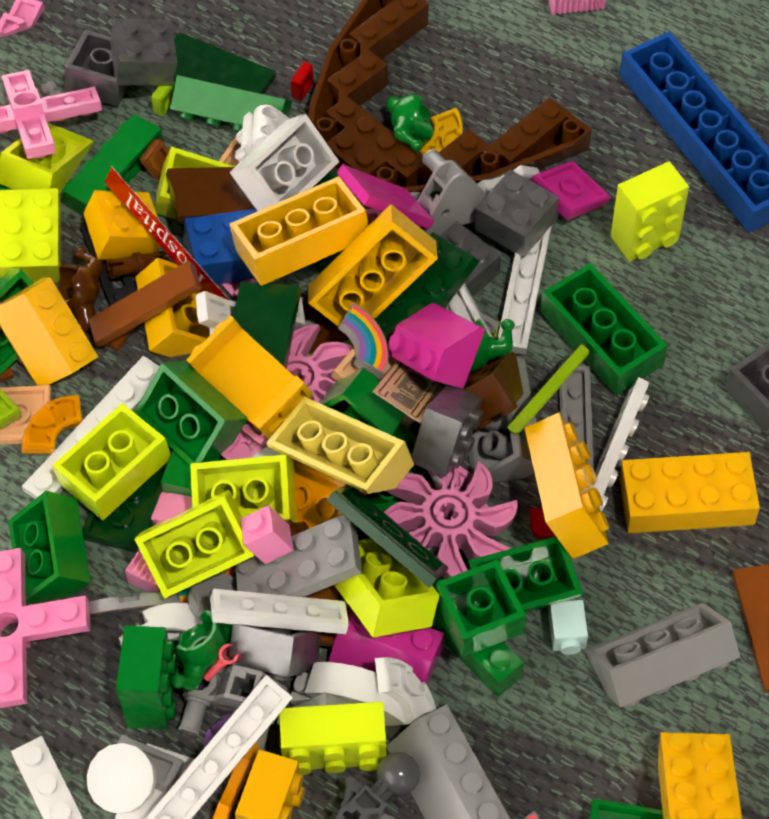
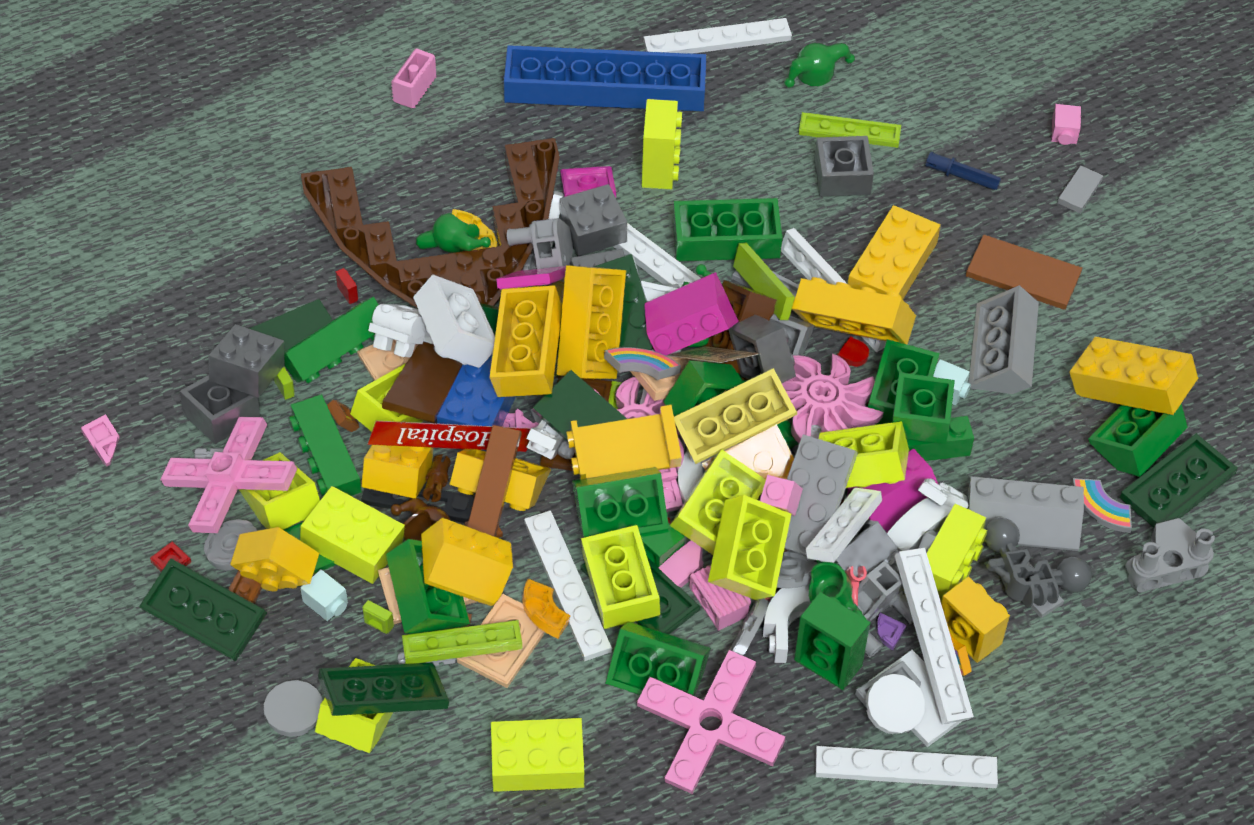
camera: 60 degrees left, 5 degrees down
(388, 534) = (832, 424): dark green tile -> none

